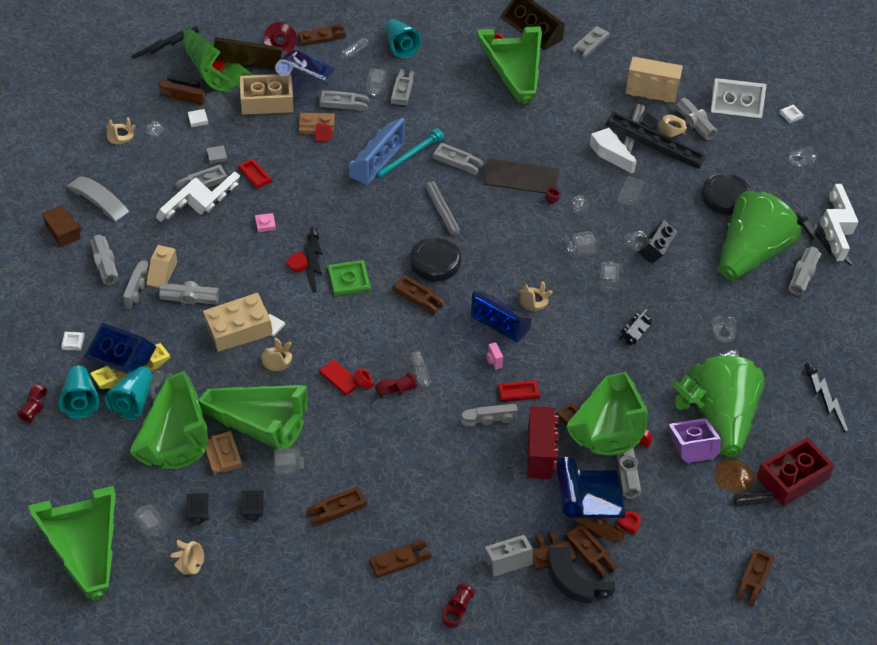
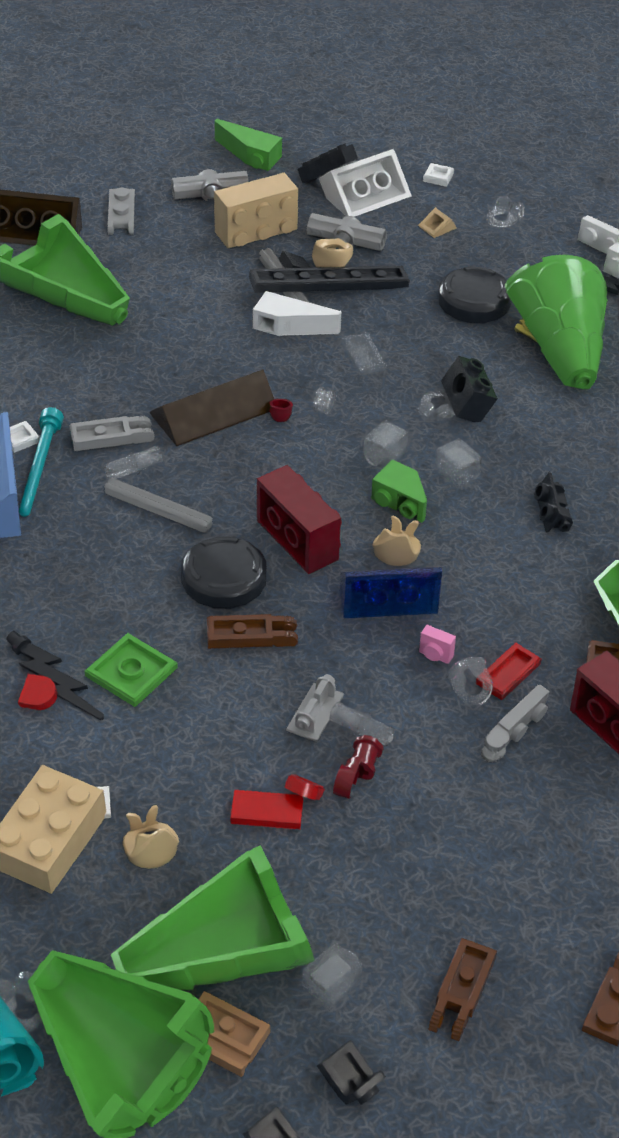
camera: 40 degrees left, 5 degrees down
(403, 350) = (315, 709): none -> light grey hinge
(415, 135) = (23, 436): none -> white tile
(451, 180) = (133, 463): none -> clear axle
(492, 253) = (298, 519): none -> dark red brick
(501, 377) = (458, 679): none -> clear piece
(564, 270) = (400, 489): none -> bright green slope
(651, 51) = (200, 185): none -> light grey piece
(700, 42) = (249, 145): none -> bright green slope
(721, 72) = (326, 162): none -> black piece
(756, 142) = (437, 223): none -> tan slope

